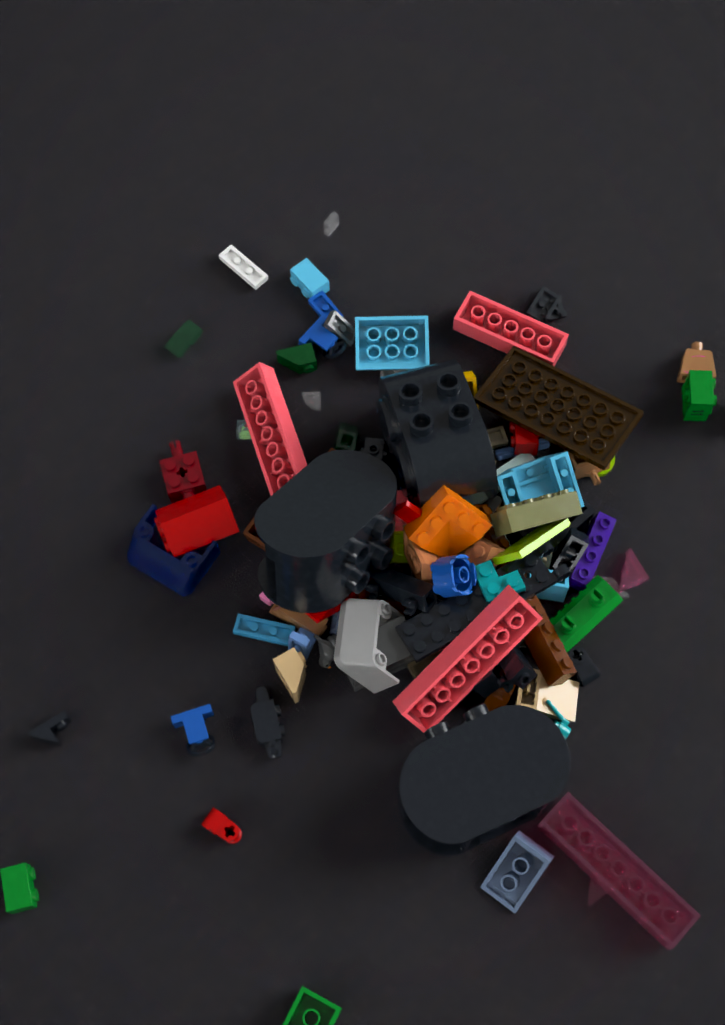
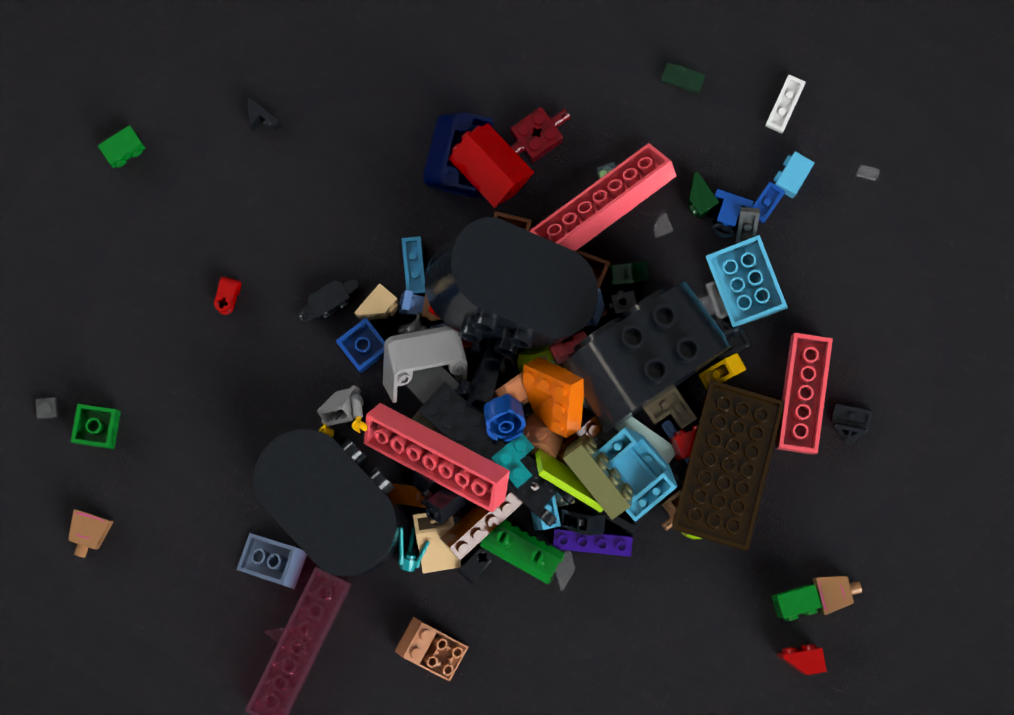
camera: 70 degrees right, 15 degrees up
(196, 729) = (301, 240): blue piece -> none
(327, 702) = (362, 345): none -> blue brick
(383, 742) = (341, 408): none -> light grey torso
(407, 511) = (550, 355): red tile -> none
(632, 572) = (586, 587): clear pink tile -> none
(653, 738) = (431, 649): none -> nougat slope

